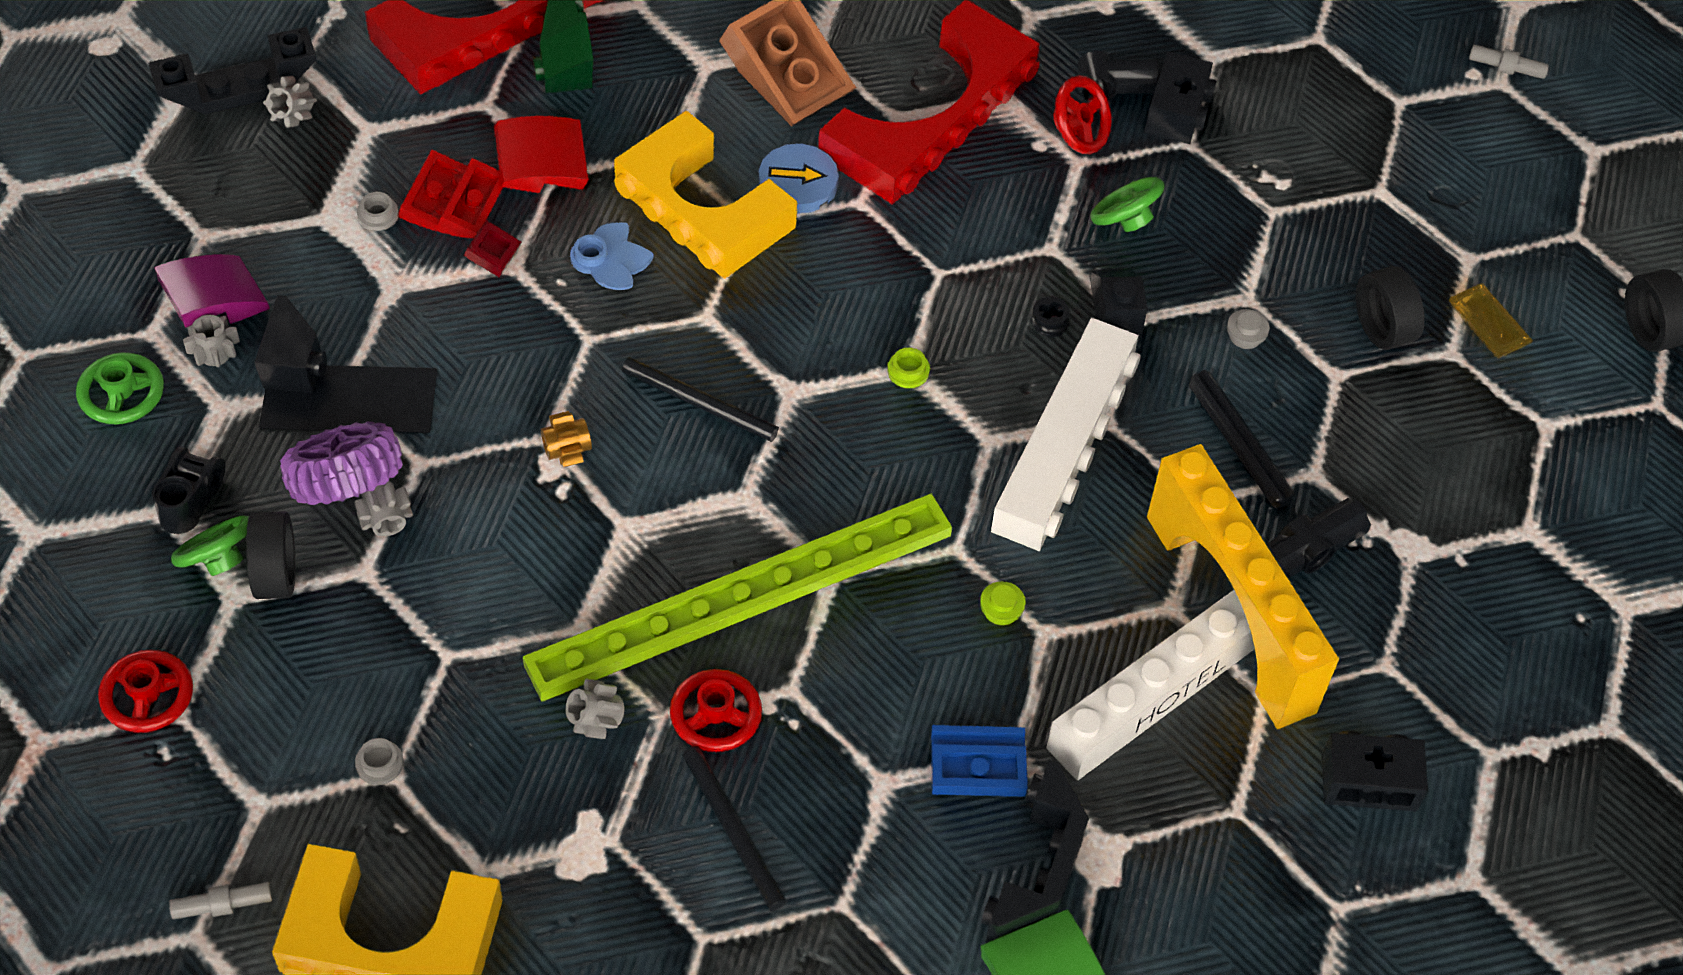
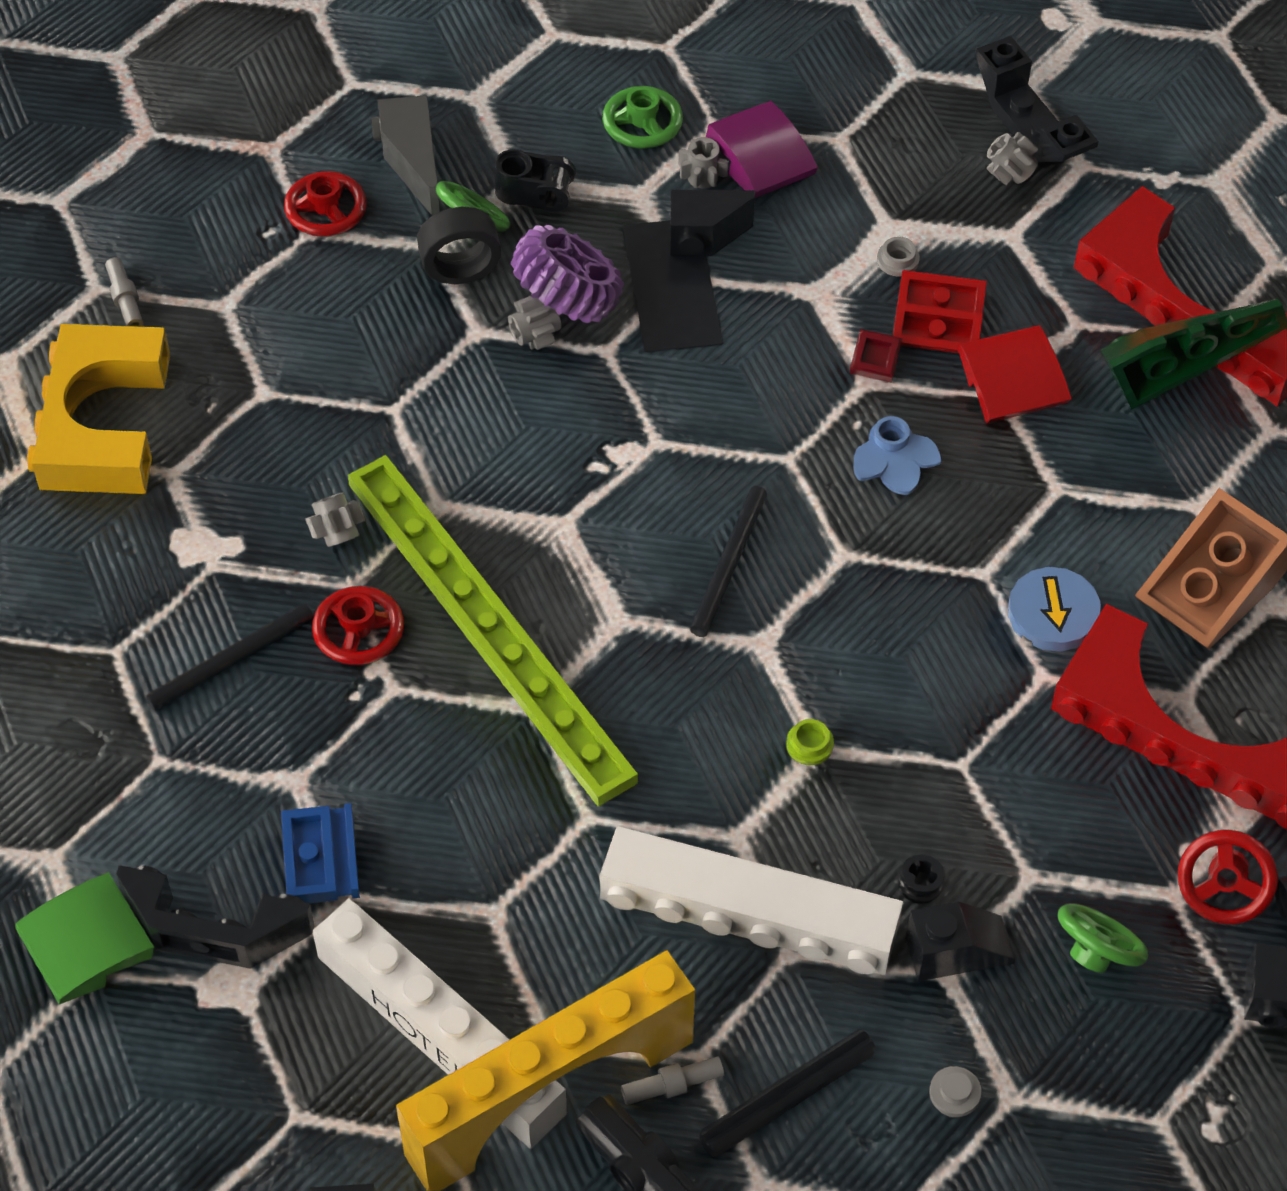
camera: 85 degrees right, 0 degrees up
(99, 594) = (408, 145): none -> dark grey slope
(379, 761) = (269, 374): light grey plate -> none
(566, 439) = (643, 448): pearl gold gear -> none
(719, 236) = (1004, 470): yellow arch -> none
(1002, 603) = (518, 861): lime plate -> none

